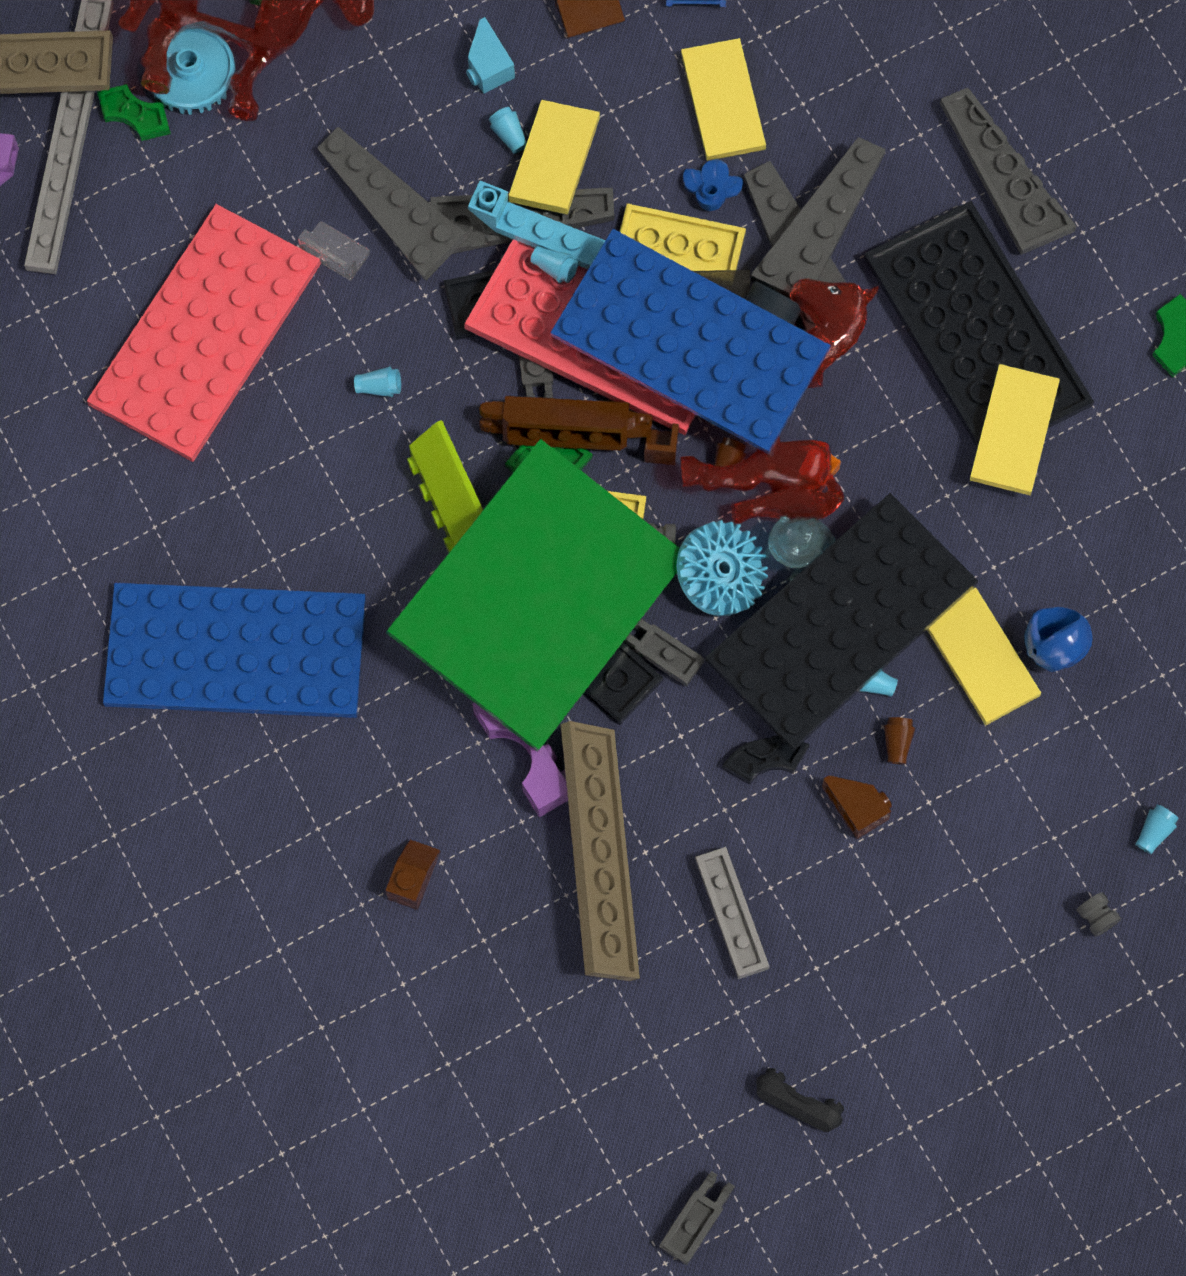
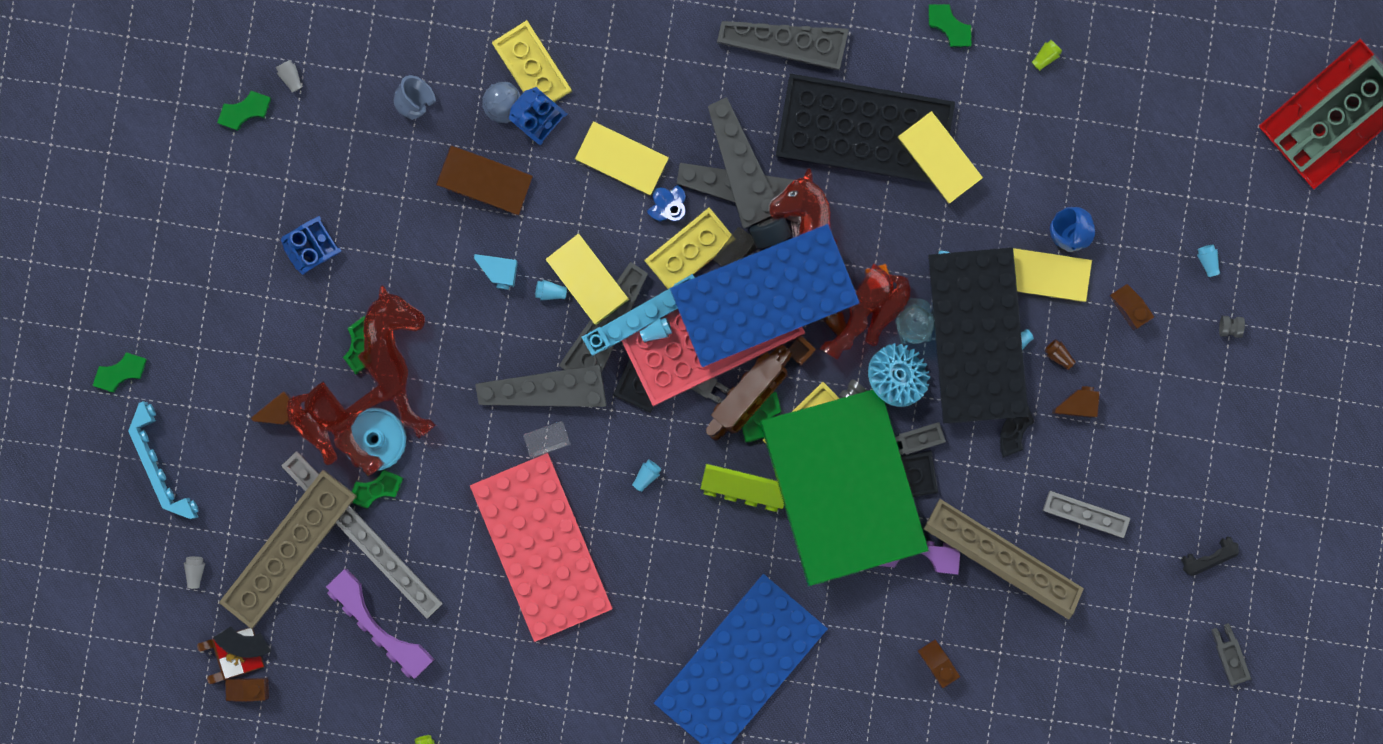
camera: 55 degrees left, 15 degrees up
(1023, 781) = (1131, 306): none -> reddish brown slope

